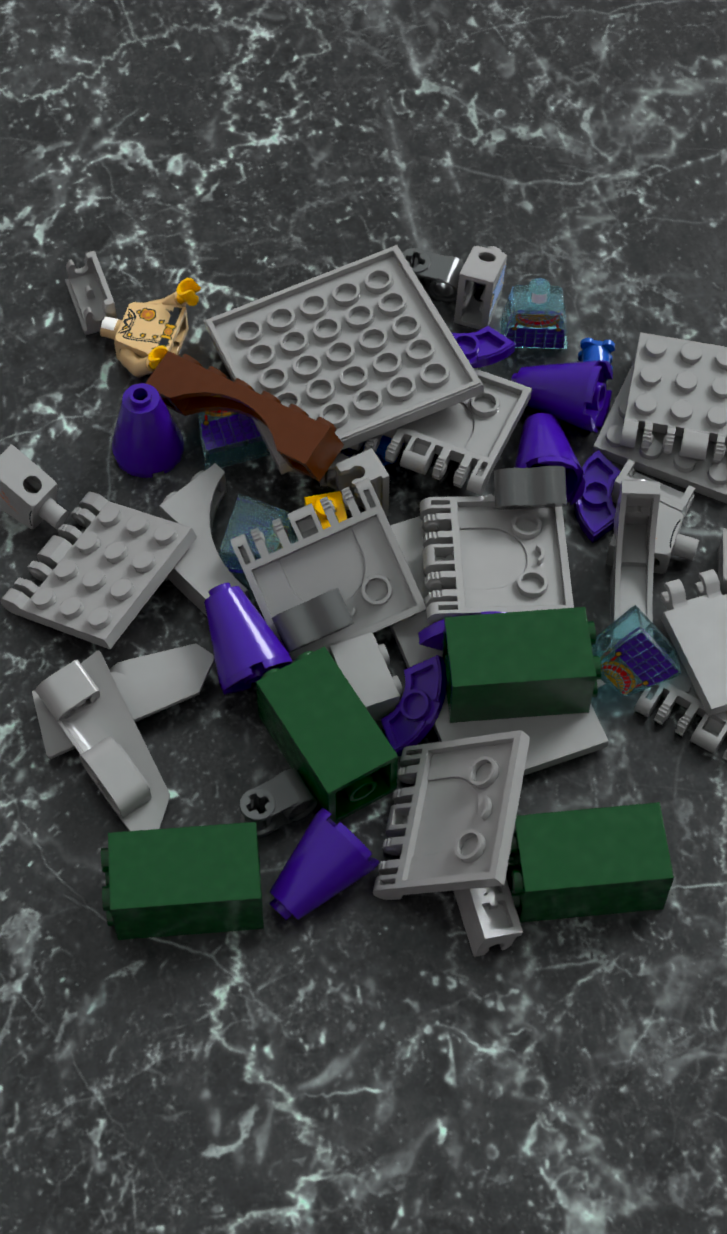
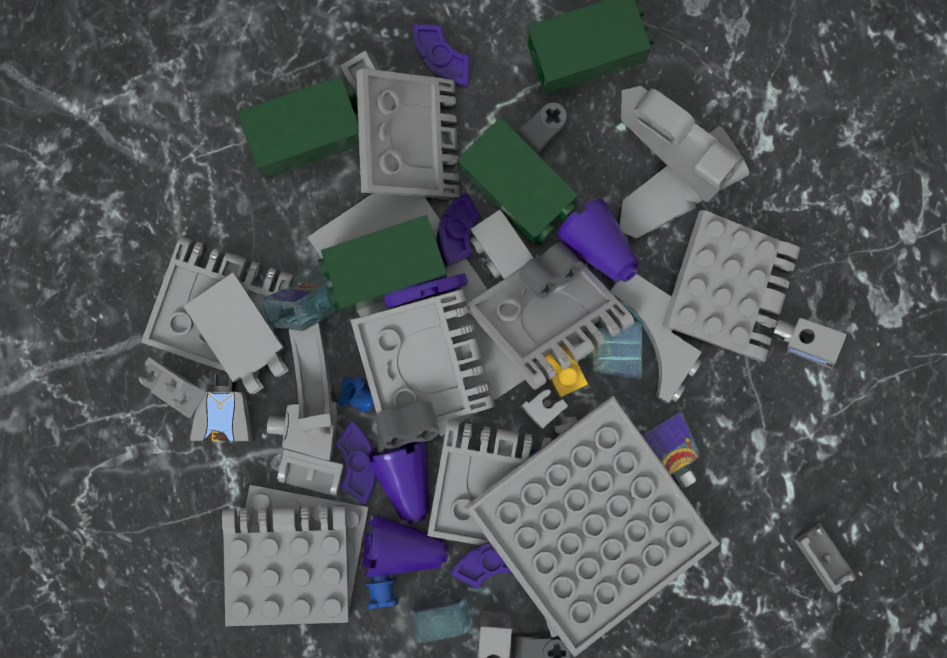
camera: 170 degrees right, 25 degrees up
(146, 434) = (721, 424): dark purple cone -> none
(151, 329) = (761, 525): tan torso -> none
(190, 389) = (601, 409): reddish brown arch -> none
(320, 867) = (493, 84): dark purple cone -> none
(384, 931) = (439, 56): none -> dark purple tile
(585, 555) = (356, 394): none -> blue brick

